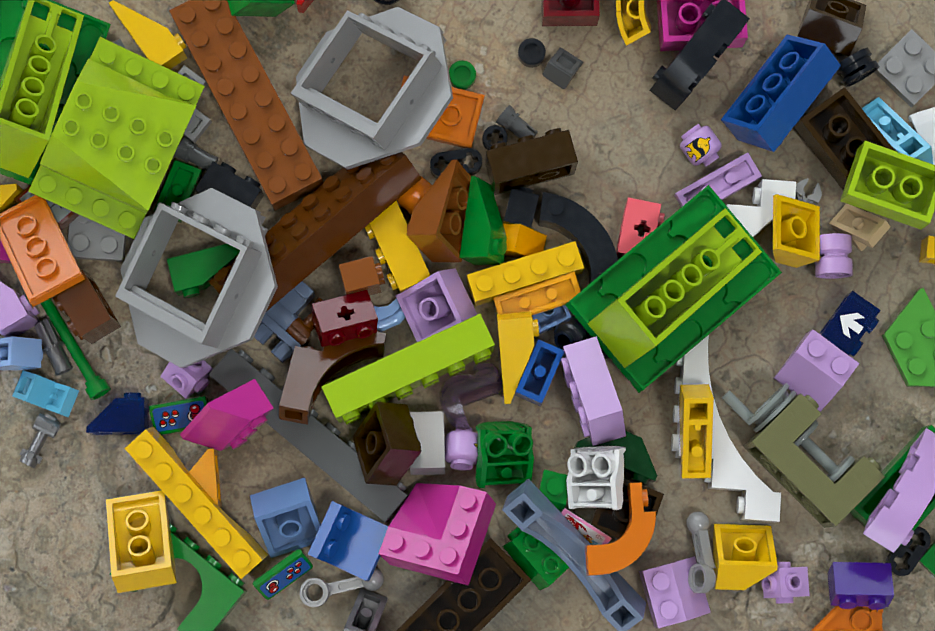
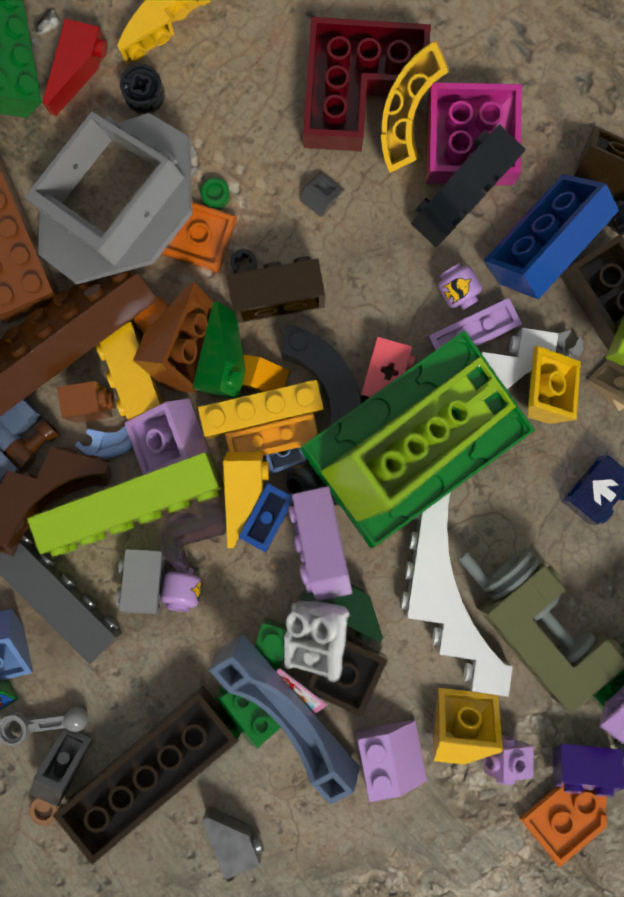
camera: 10 degrees right, 5 degrees up
(344, 318) = (46, 444): dark red brick -> none
(349, 541) = (52, 679): bracket -> none
(386, 443) = (96, 583): dark brown brick -> none
(439, 531) = (144, 682): dark pink slope -> none
(460, 156) = (203, 279): black beam -> none
(504, 453) = (223, 598): green slope -> none
(514, 123) = (265, 248): dark grey pin -> none
(521, 207) = (264, 339): black brick -> none
(531, 52) = (290, 175): black tile -> none
(630, 546) = (334, 725): orange arch -> none
(696, 430) = (428, 594): yellow slope -> none
(698, 525) = (422, 689): light grey piece -> none
(816, 369) = (561, 535): lavender slope -> none
(834, 256) = (591, 416): lavender wheel -> none

